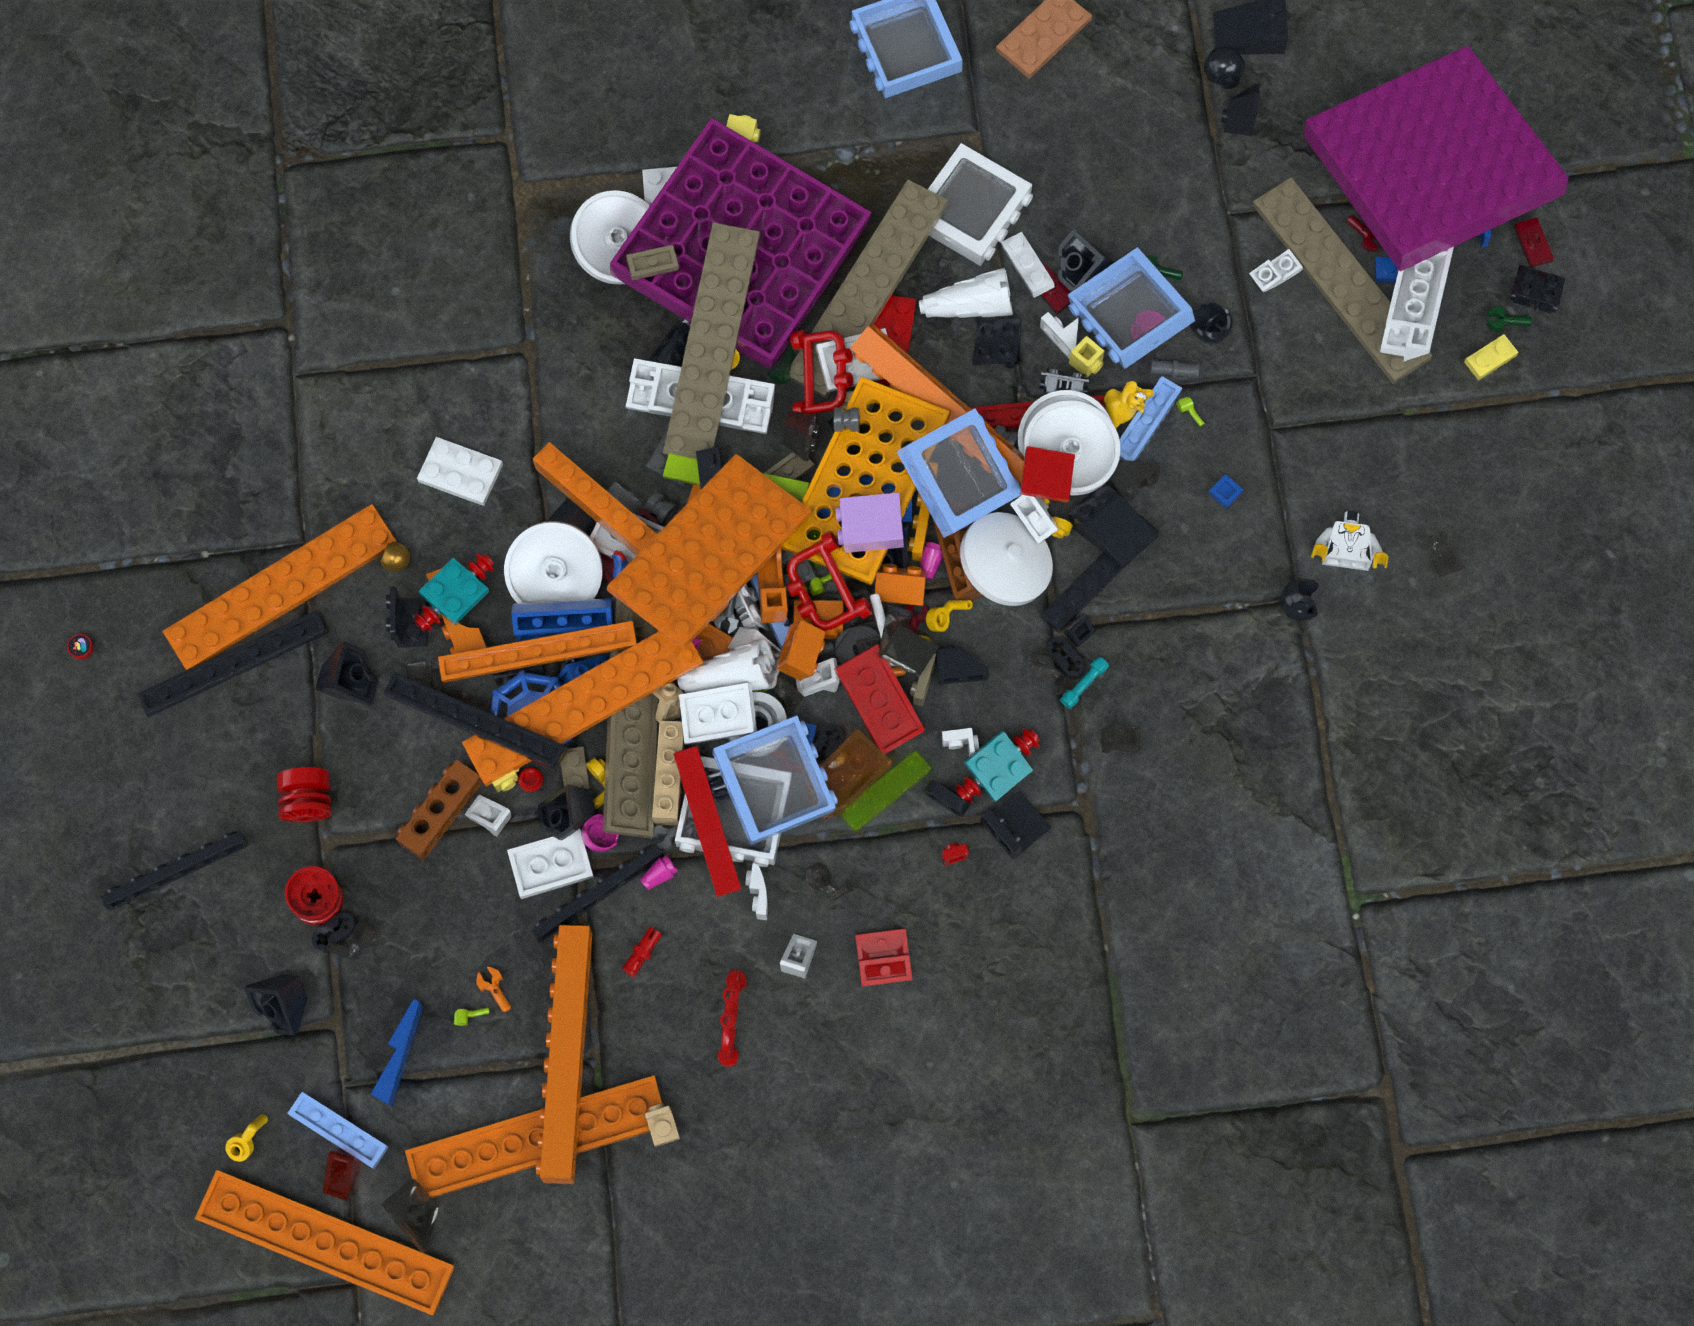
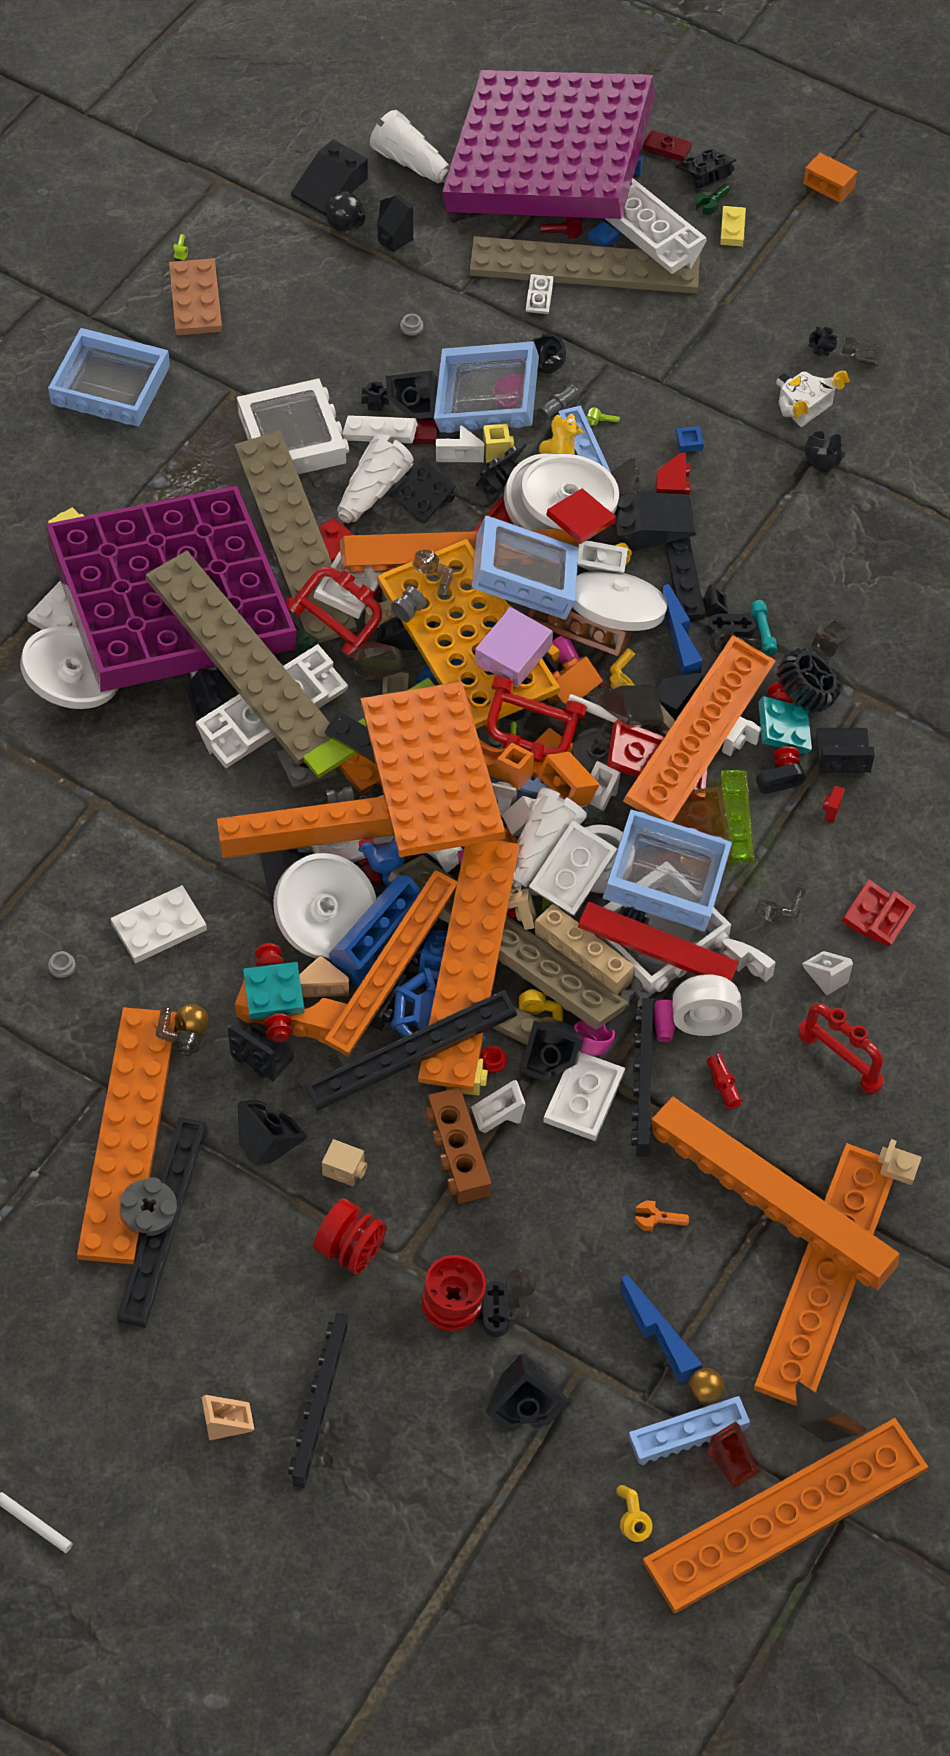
camera: 55 degrees left, 15 degrees down
(80, 646) = (23, 1336): tile -> none
(116, 820) = (226, 1417): none -> light nougat slope
(219, 635) = (143, 1221): none -> dark grey plate
(364, 745) = (344, 1163): none -> tan brick
(373, 567) = (183, 1042): none -> clear smoke plate
(374, 436) = (61, 964): none -> light grey plate
(378, 1118) = (706, 1386): none -> pearl gold piece
(461, 1015) = (664, 1259): lime hand -> none
(499, 614) = (323, 980): none -> light nougat slope
(652, 262) = (133, 641): dark tan plate -> none
(685, 892) = (707, 1005): none -> white piece
(896, 401) = (428, 563): none -> clear smoke plate
(931, 709) = (699, 731): none -> orange plate
(1028, 619) = (678, 625): none -> blue slope
(1055, 230) = (374, 396): none -> black gear
(1063, 749) = (808, 680): none -> black gear
(1156, 204) = (411, 324): none -> light grey plate
(1168, 510) = (672, 476): none -> red slope
(1334, 57) = (407, 146): none -> white cone
(1421, 516) = (822, 341): none -> black gear
(1616, 392) = (830, 177): none -> orange brick

